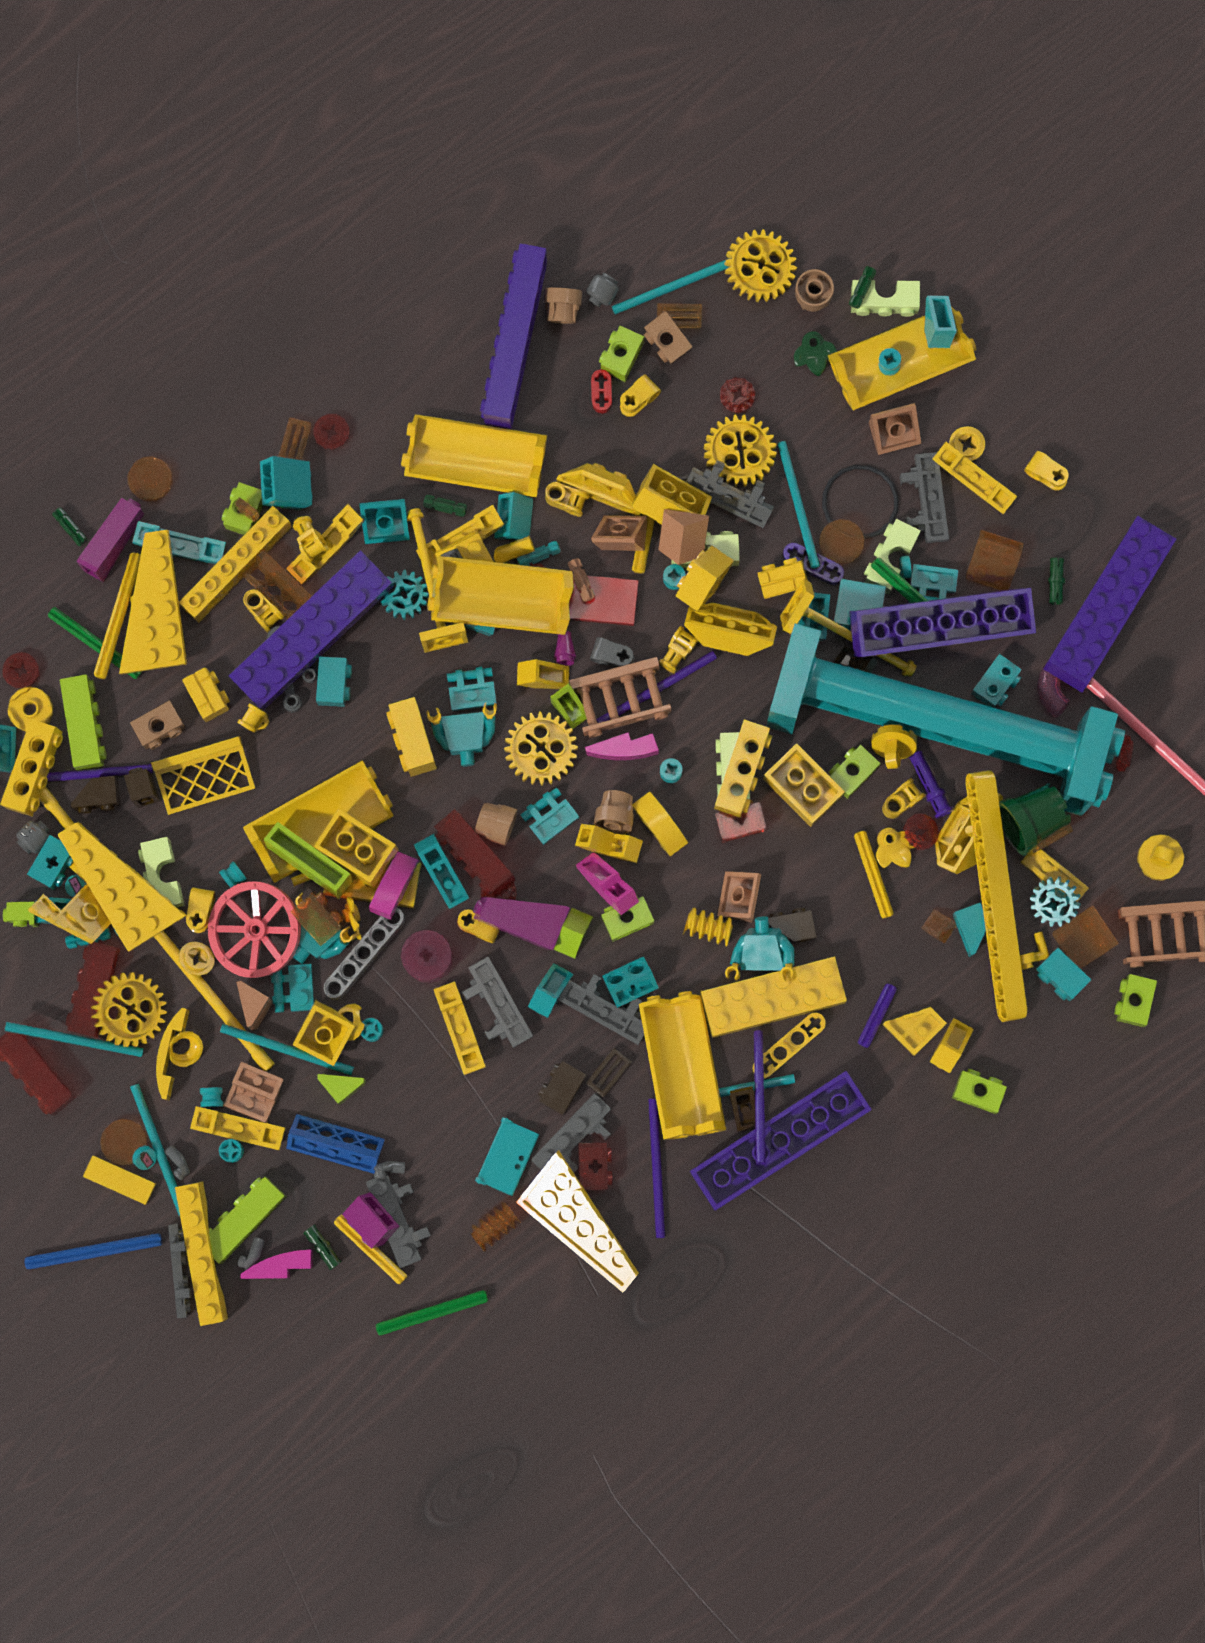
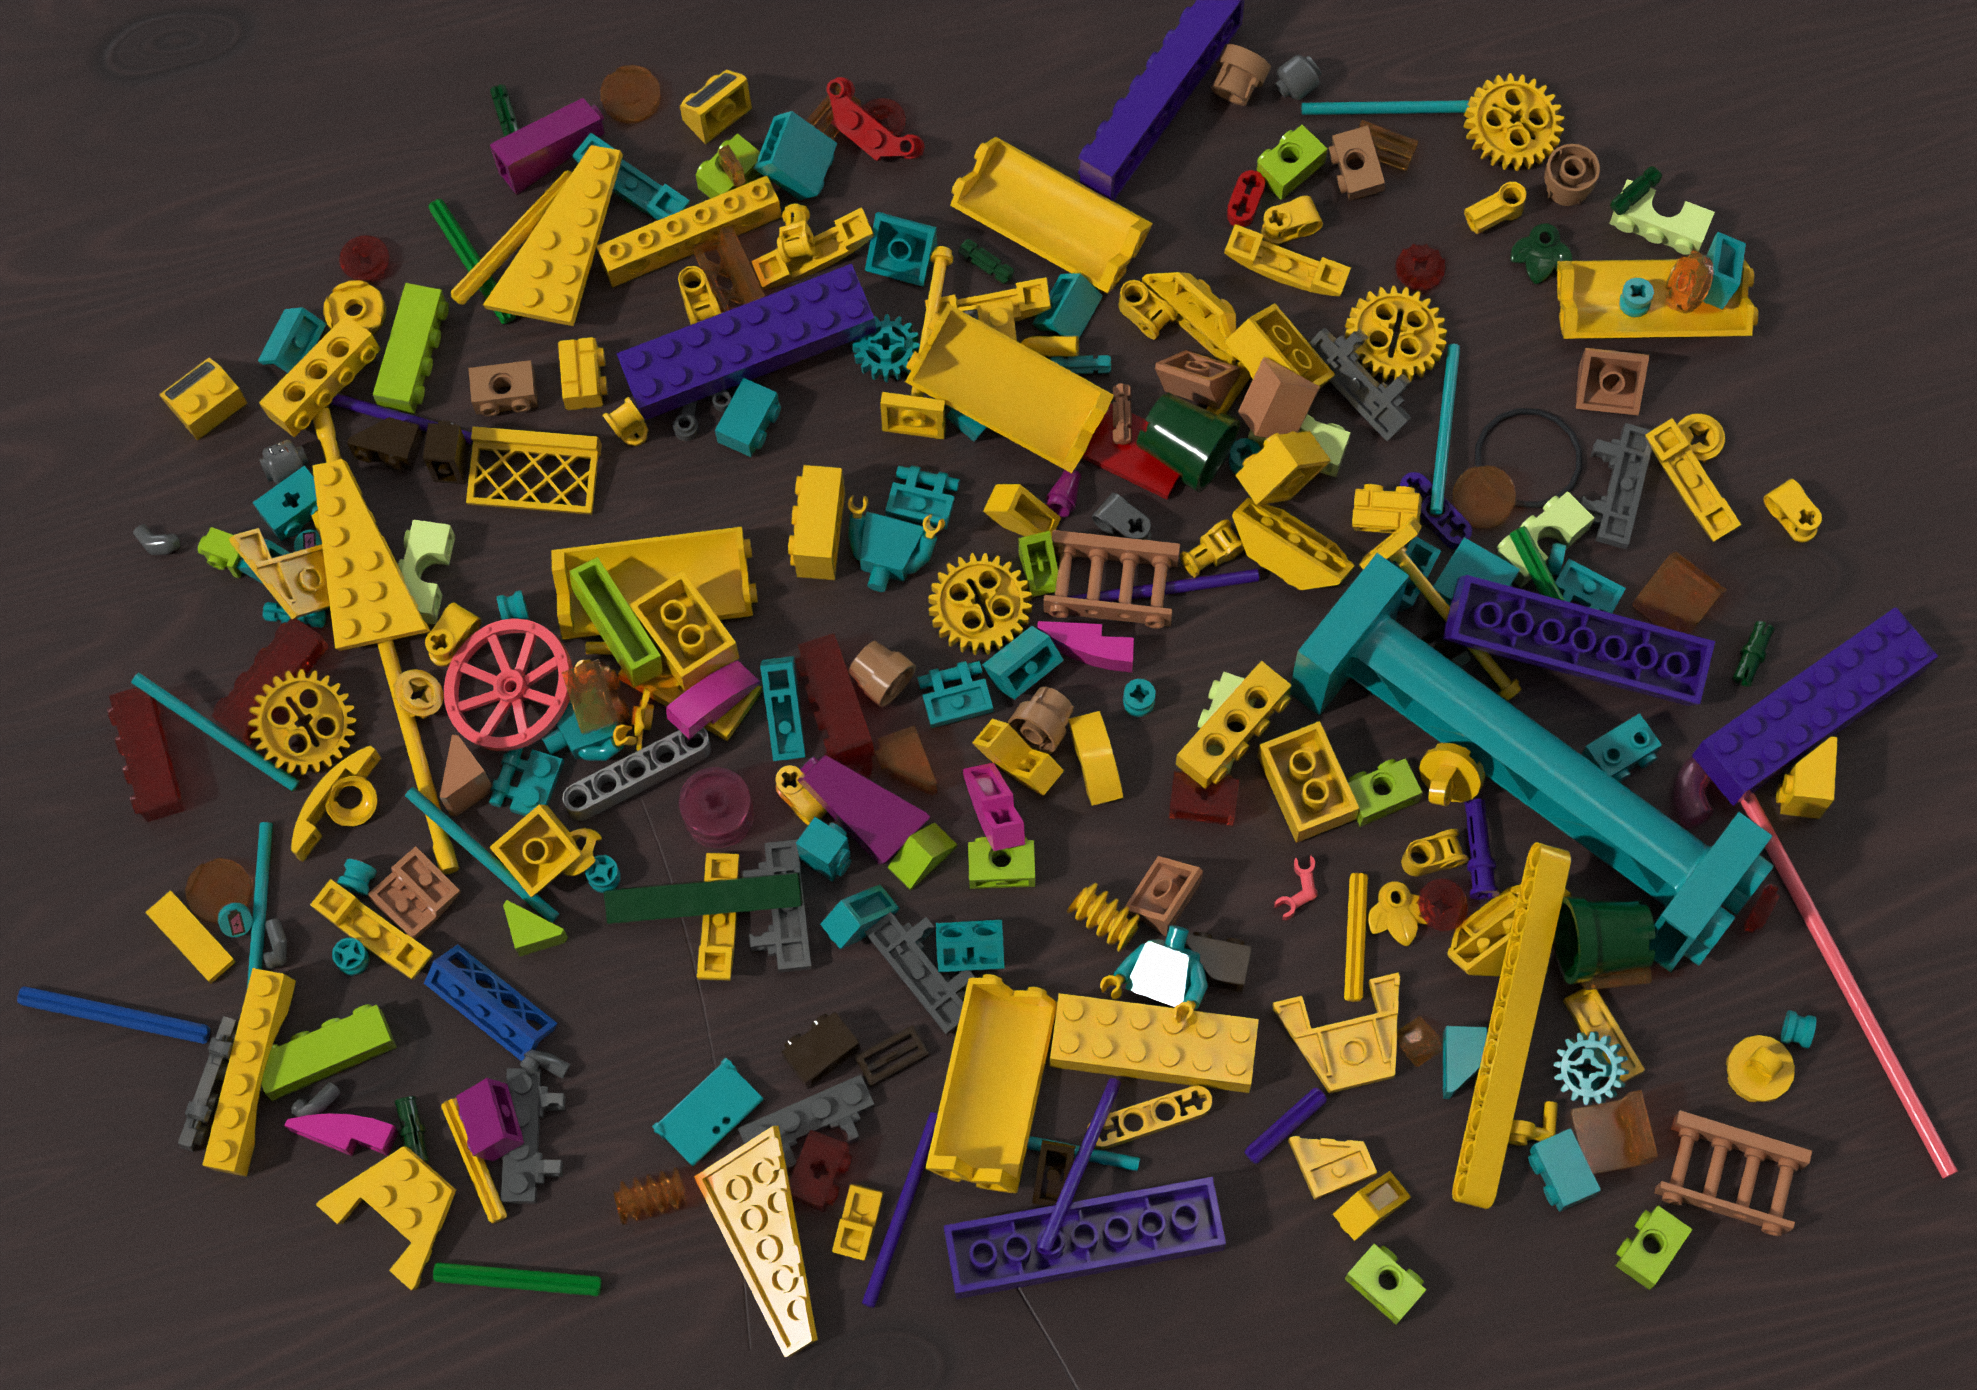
camera: 20 degrees right, 10 degrees down
(214, 465) = (716, 105): none -> yellow slope
(324, 443) = (864, 128): none -> red plate
(338, 1290) = (406, 1196): none -> yellow wing
(444, 1020) = (703, 898): none -> dark green tile
(511, 956) = (824, 849): none -> teal brick
(537, 874) = (906, 760): none -> clear orange slope
(586, 778) = (1023, 662): none -> teal brick
(632, 1187) = (858, 1222): none -> yellow slope
(633, 583) = (1188, 439): none -> dark green piece
(647, 429) = (1285, 265): none -> yellow slope
(771, 334) = (1495, 208): none -> yellow piece
(831, 858) = (1308, 890): none -> coral arm
(898, 951) = (1350, 1050): none -> yellow wing
(921, 339) = (1689, 282): none -> clear orange tile
(1126, 657) = (1810, 784): none -> yellow slope
(1175, 822) = (1798, 1029): none -> teal wheel

